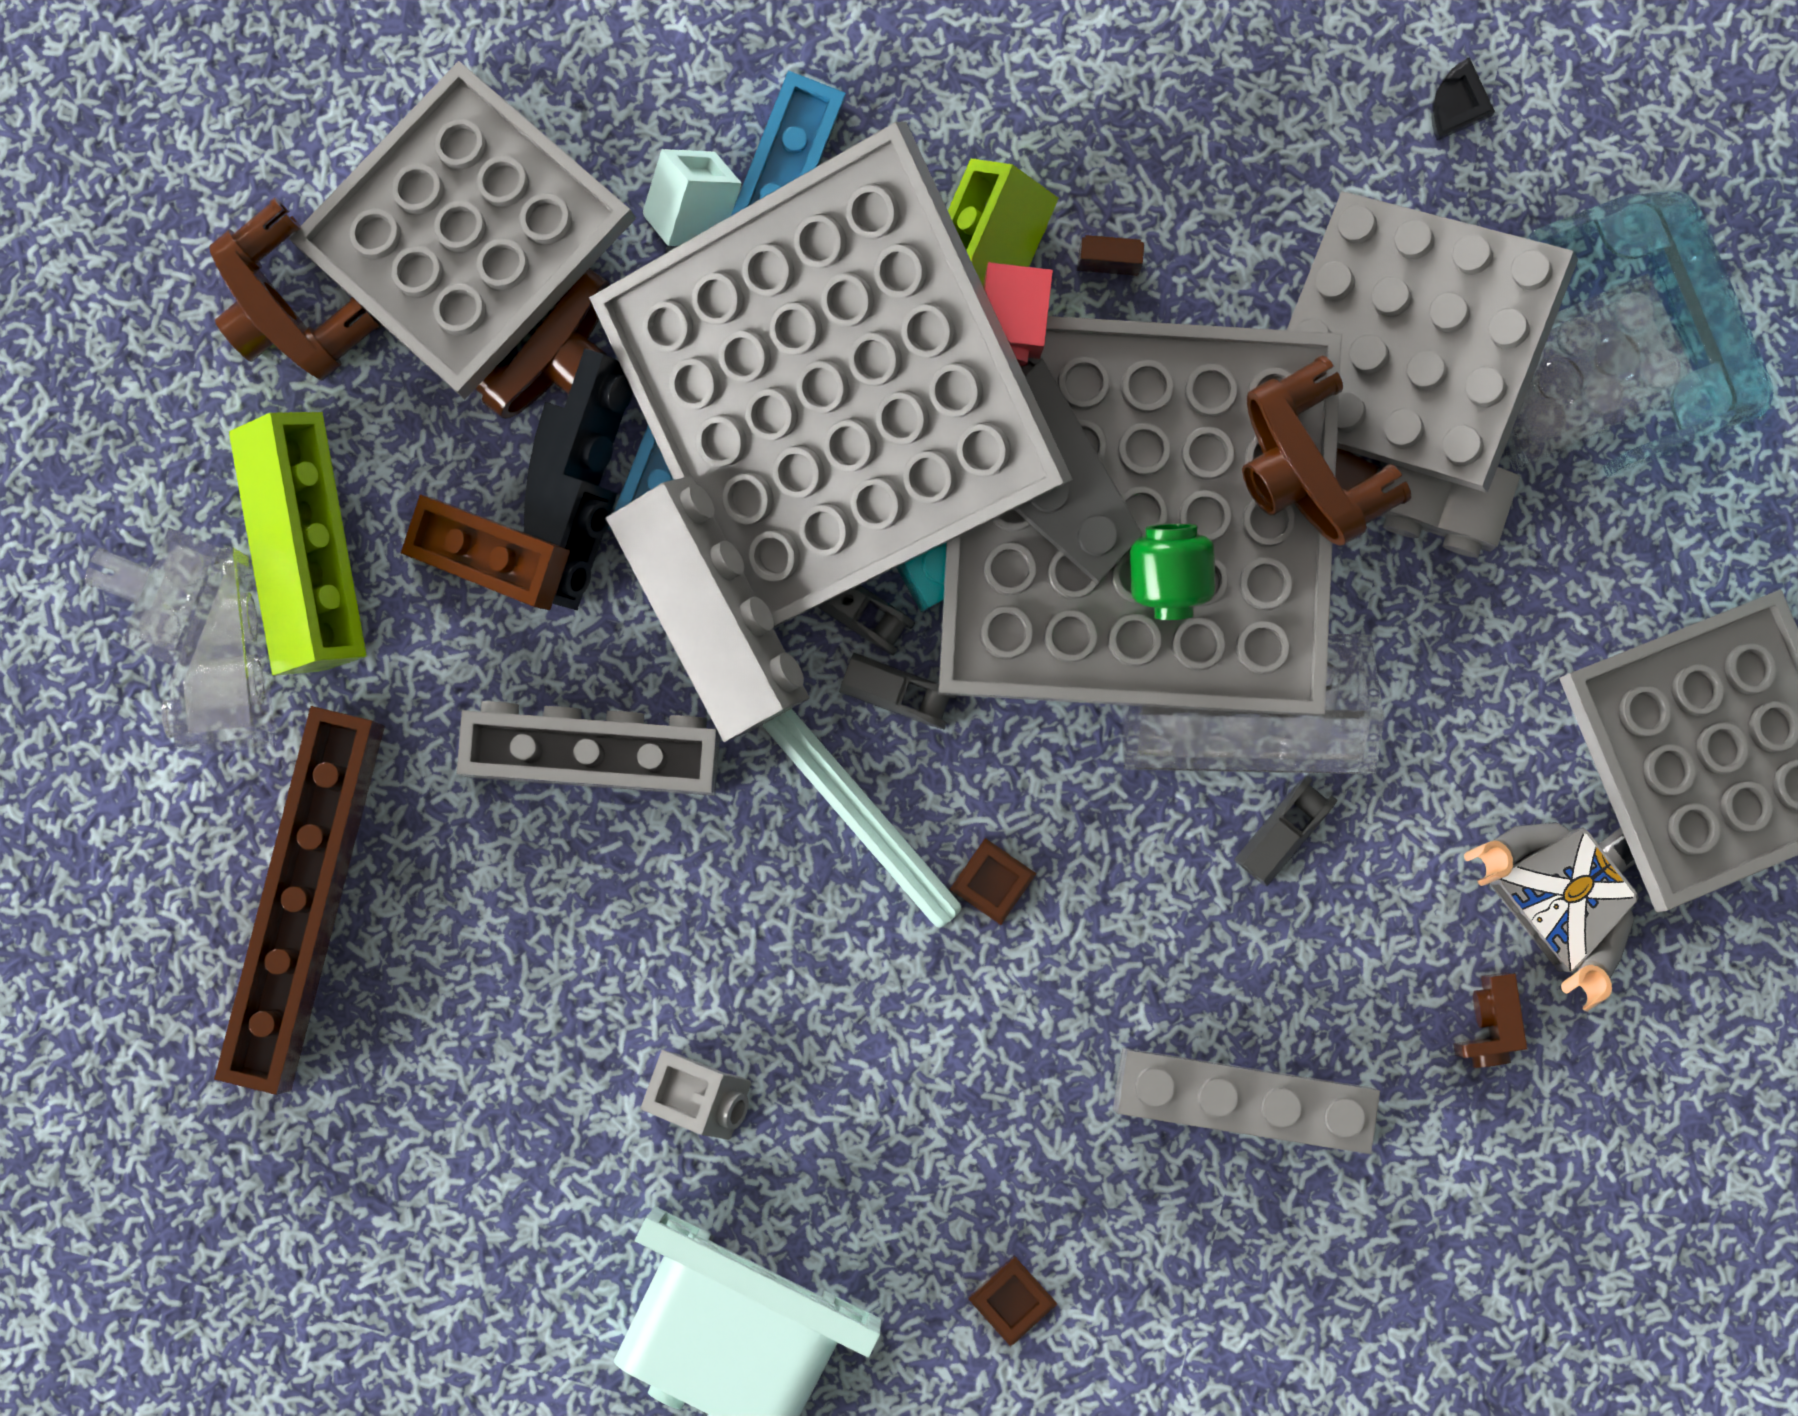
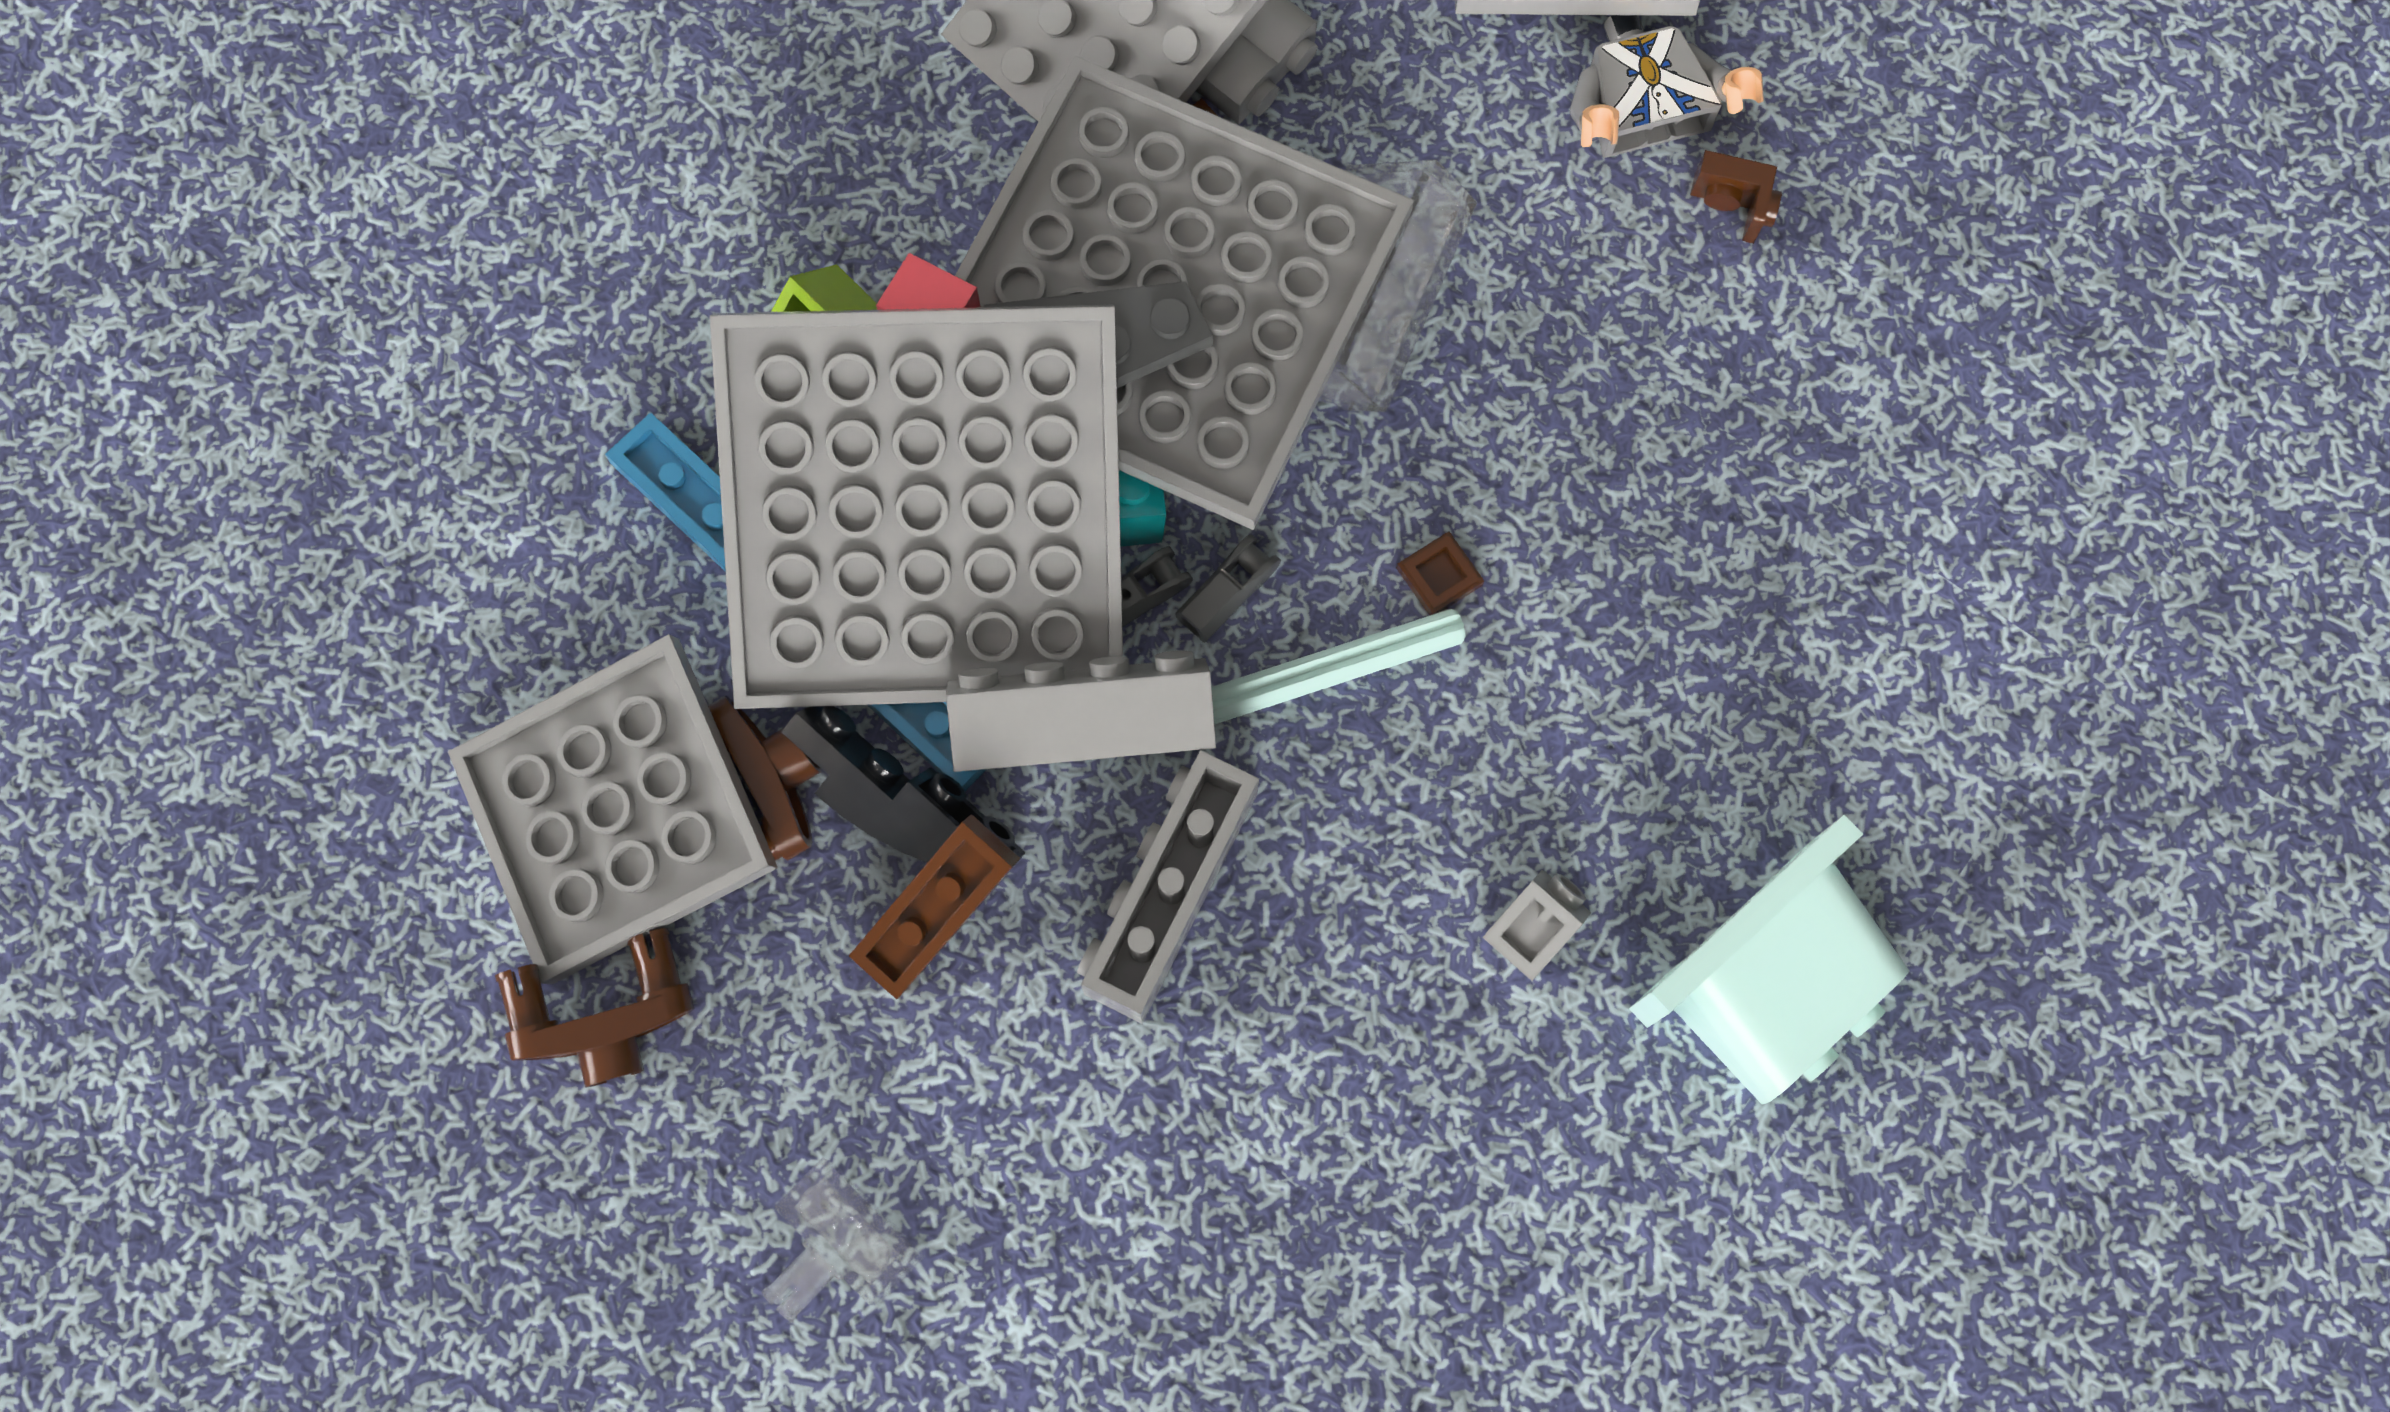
camera: 65 degrees left, 10 degrees down
(222, 673) = (945, 1214): clear slope -> none
(297, 543) = (846, 1099): lime brick -> none
(299, 901) = (1201, 1228): reddish brown brick -> none
(689, 194) = (681, 589): light aqua panel -> none
(1012, 1300) = (1840, 709): reddish brown tile -> none
(1110, 255) = (912, 235): reddish brown tile -> none
(1172, 570) = (1230, 266): green head -> none
(1246, 1100) = (1731, 426): light grey brick -> none
(1278, 838) = (1499, 308): dark grey bar -> none
(1296, 470) = (1181, 128): reddish brown connector -> none

